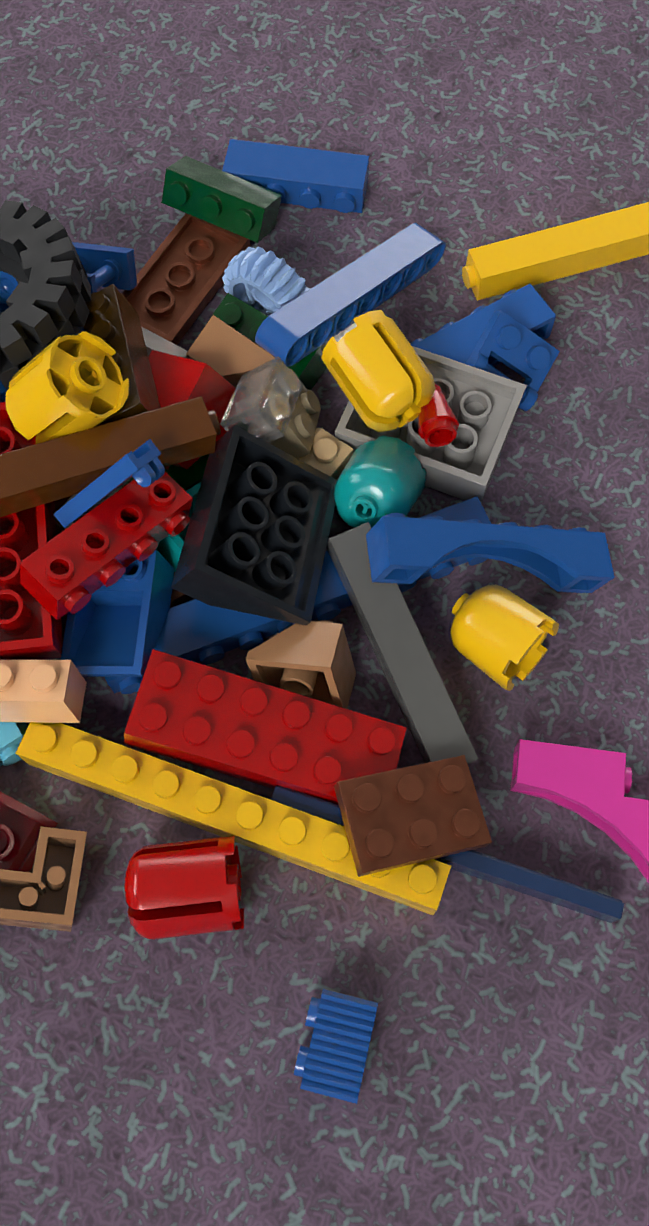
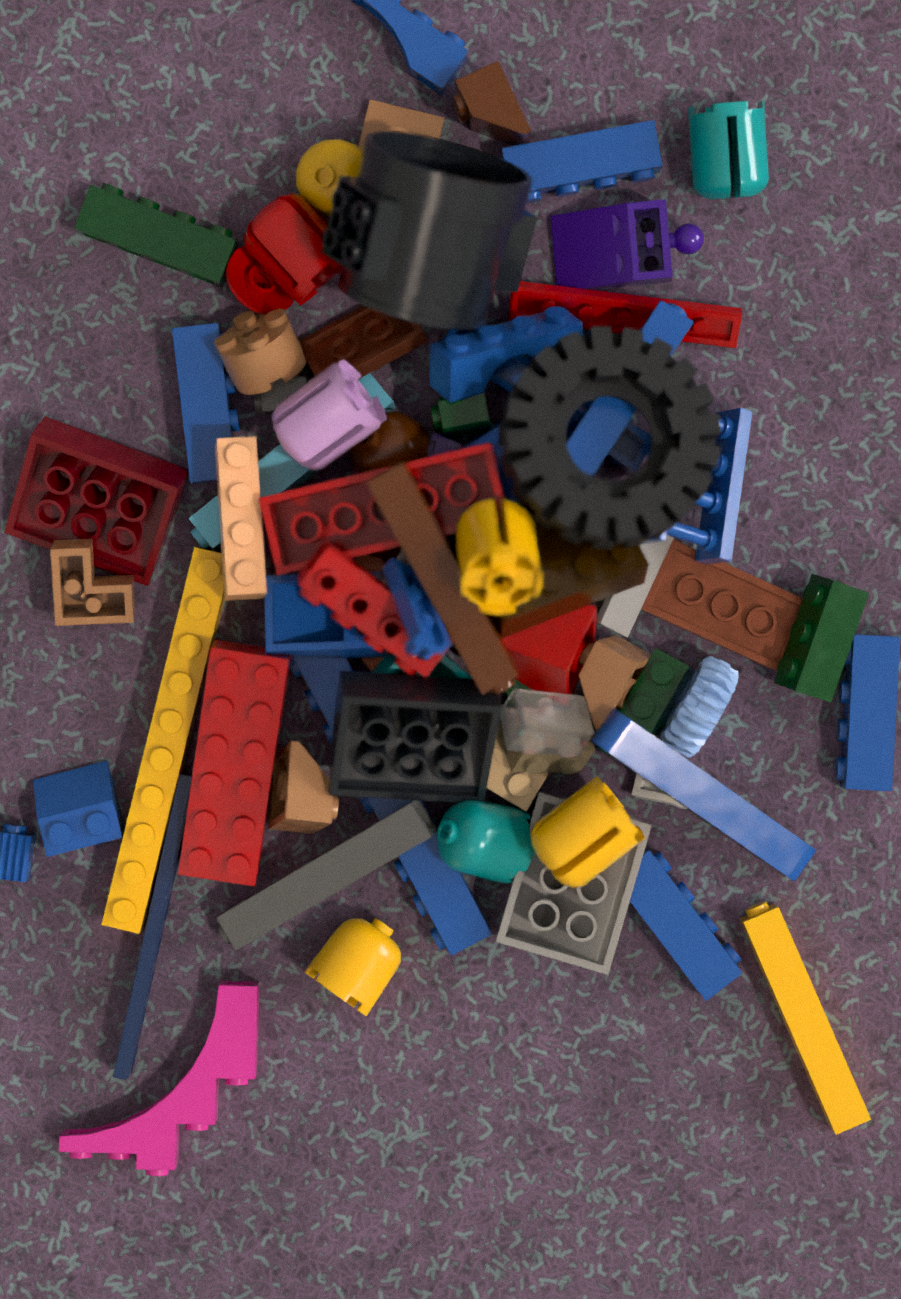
camera: 85 degrees right, 20 degrees up
(185, 888) = (97, 712): red cylinder -> none
(298, 929) = (78, 808): none -> blue slope
(411, 815) = (174, 898): copper plate -> none
(437, 421) = (550, 894): red cone -> none
(517, 349) = (661, 961): blue plate -> none
(564, 559) = (404, 884): blue arch -> none

